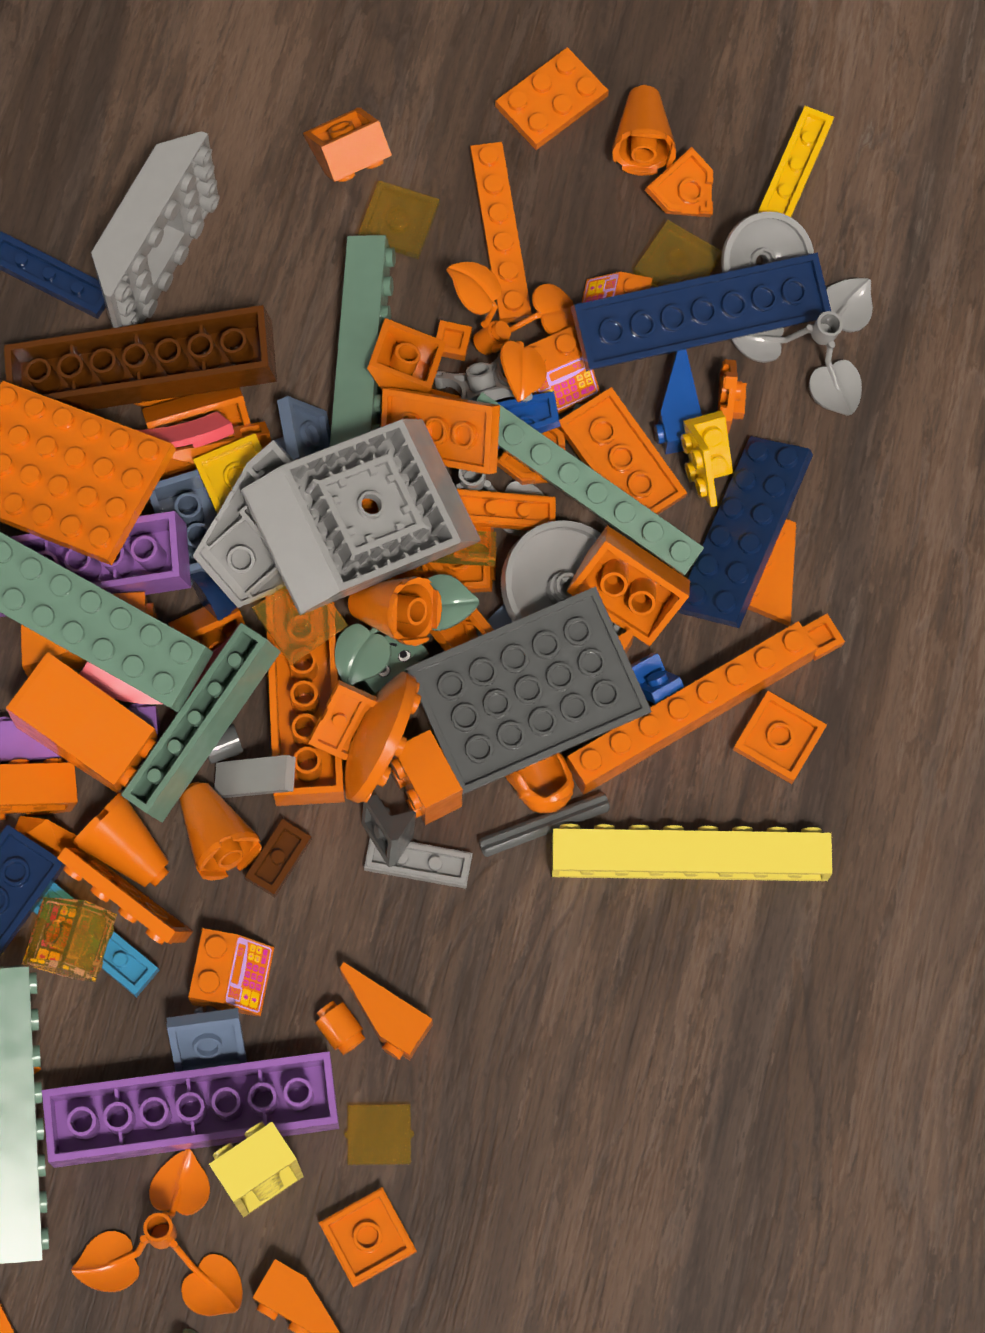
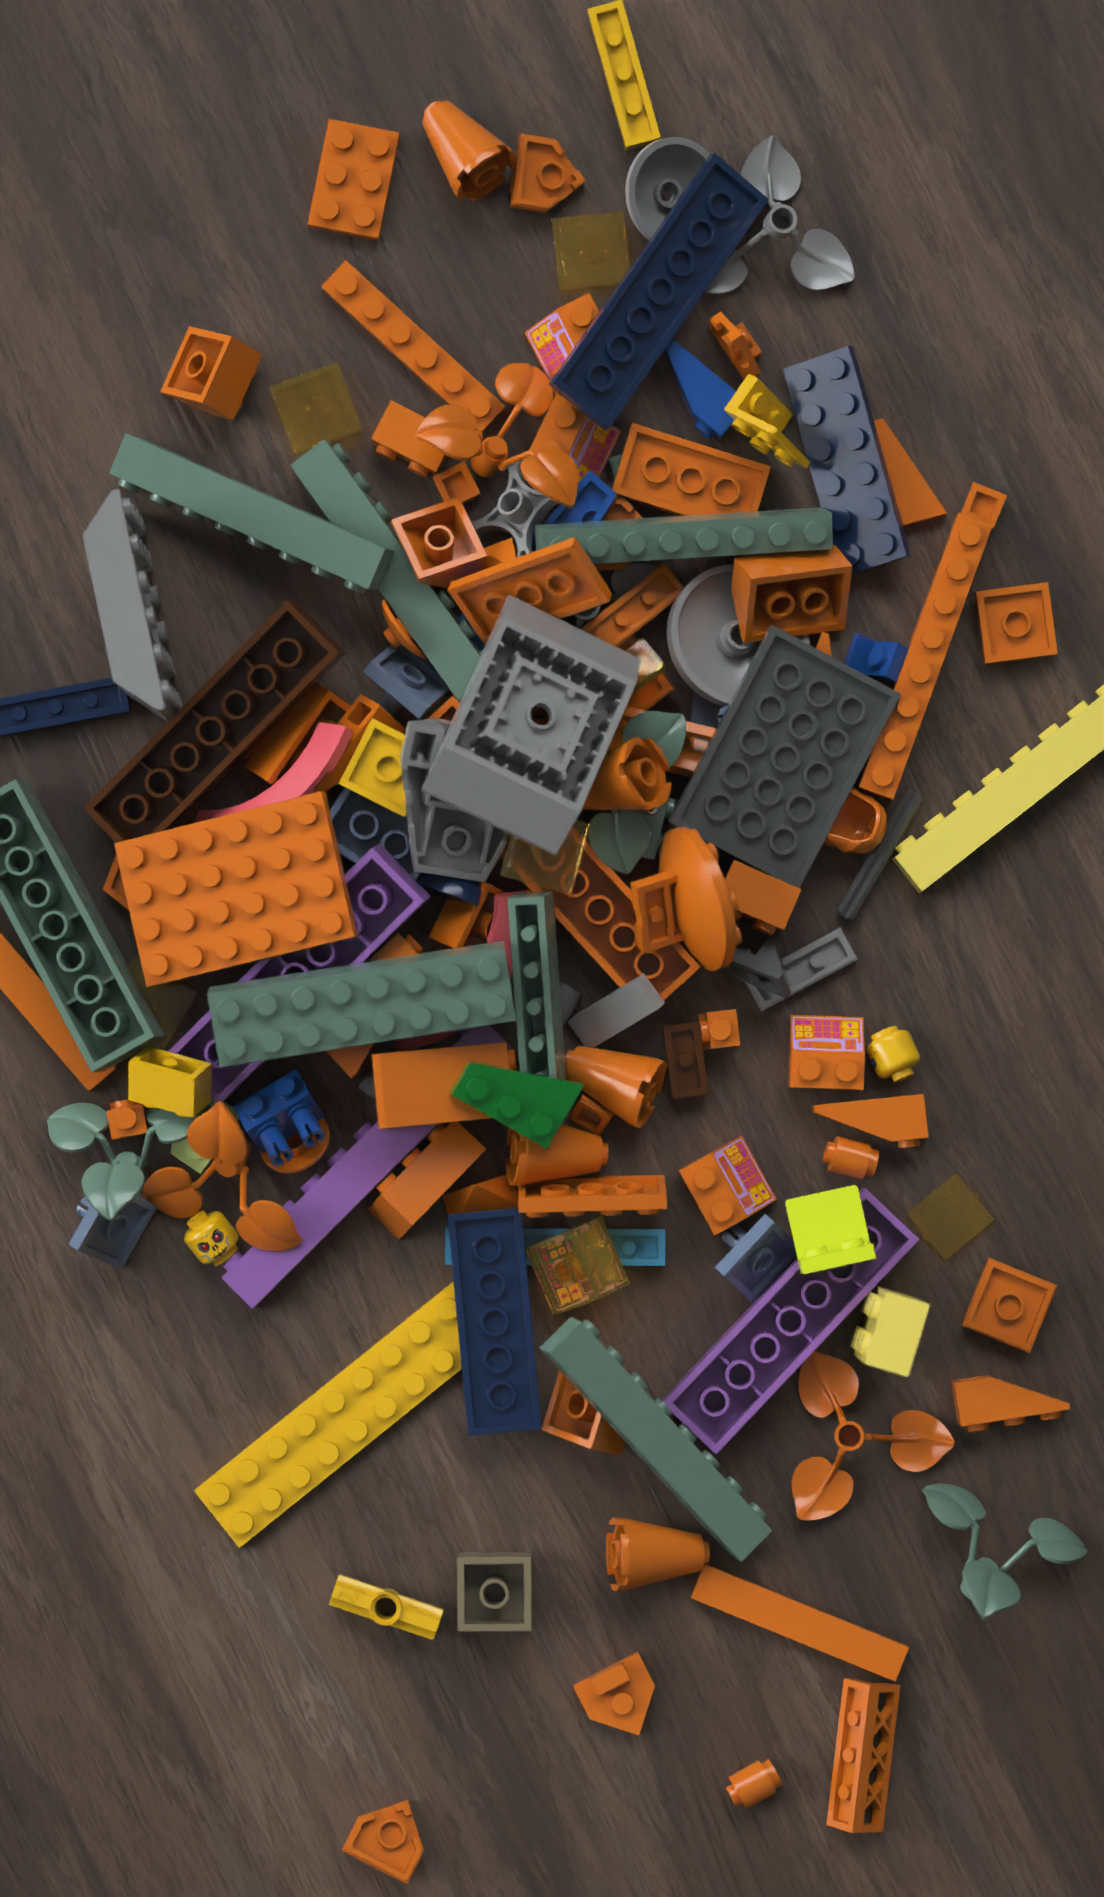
camera: 30 degrees left, 15 degrees up
(125, 772) = (520, 1100): none -> green wing
(175, 842) = (591, 1115): none -> orange slope
(274, 1057) = (829, 1229): none -> neon yellow bracket
(294, 245) = (251, 512): none -> sand green brick
(322, 855) = (719, 1029): none -> orange brick
(324, 400) = (397, 632): none -> orange dish
(385, 936) = (826, 1052): none -> orange slope
(435, 974) = (893, 1054): none -> yellow head
(440, 287) = (396, 438): none -> orange brick

